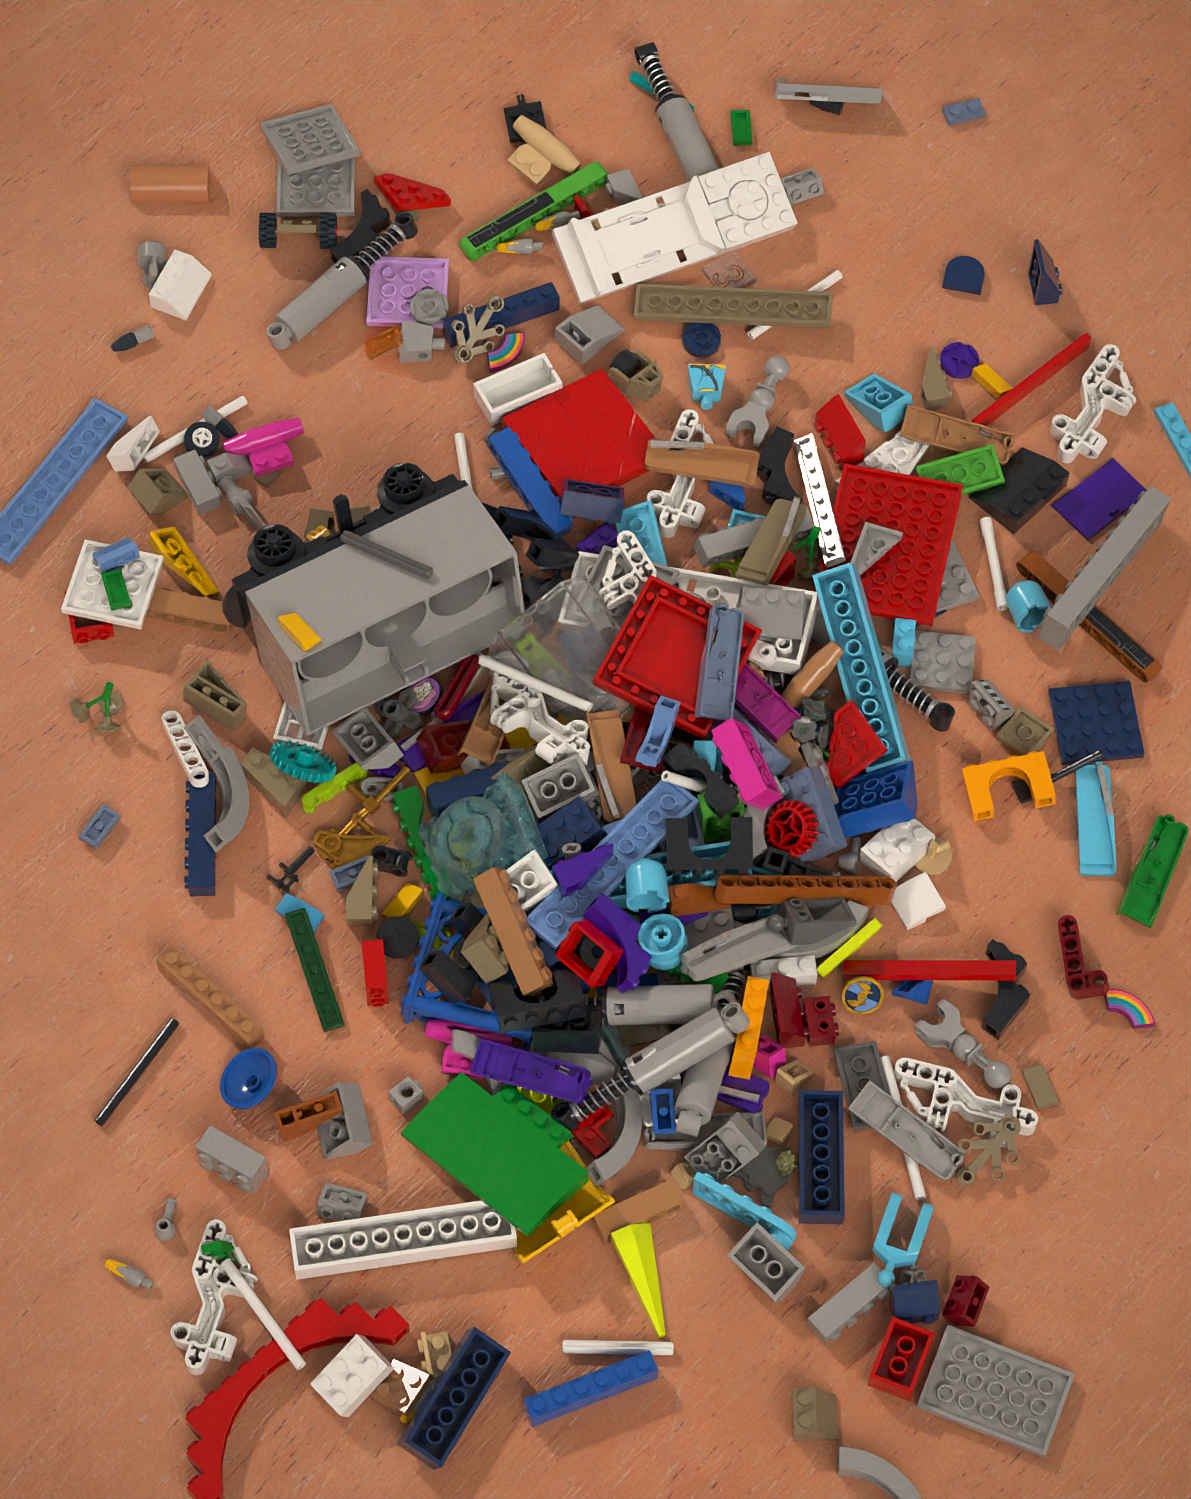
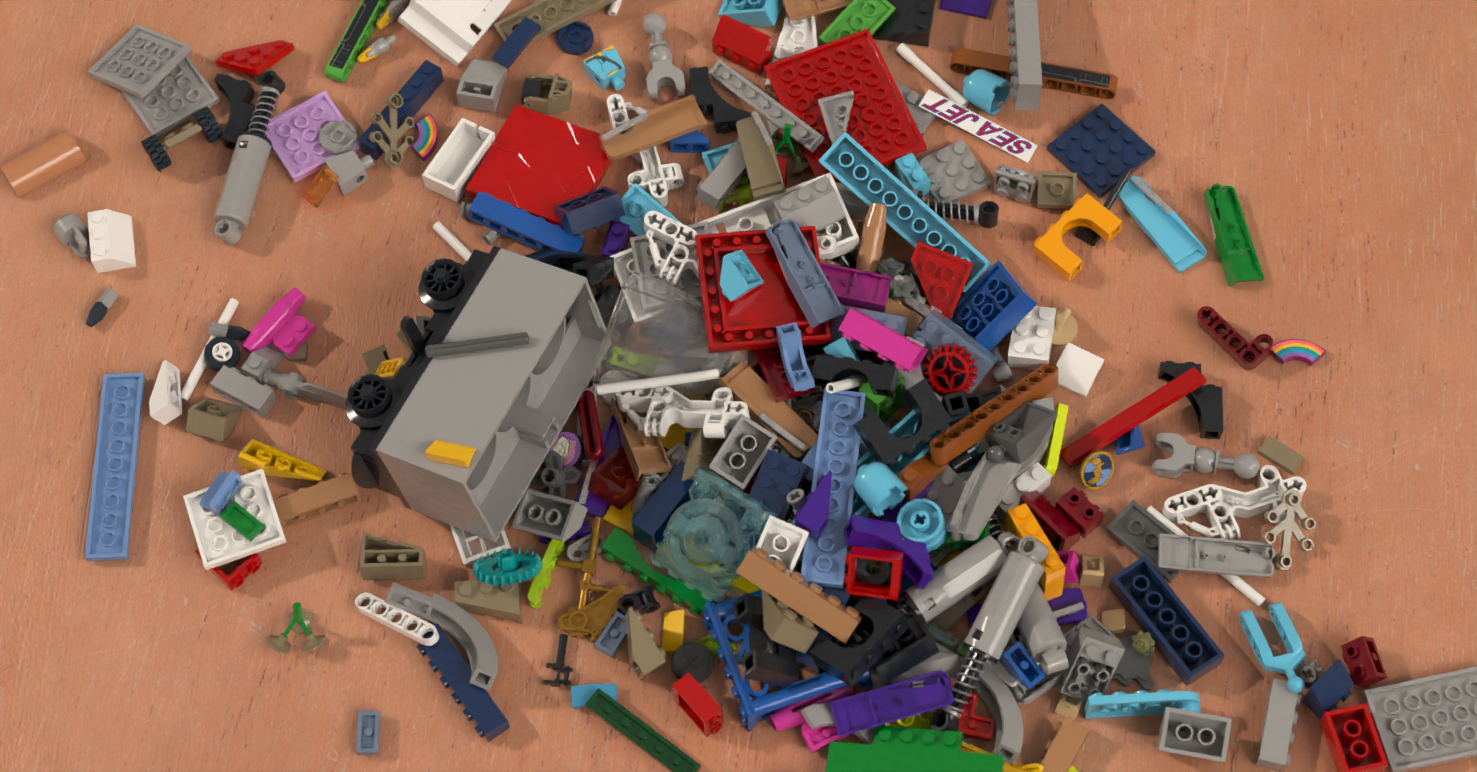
camera: 30 degrees left, 0 degrees up
(461, 768) = (646, 489): none -> light grey piece
(643, 312) = (516, 42): none -> dark blue tile
(660, 631) = (738, 275): none -> medium azure slope
(999, 633) = (978, 125): none -> sticker

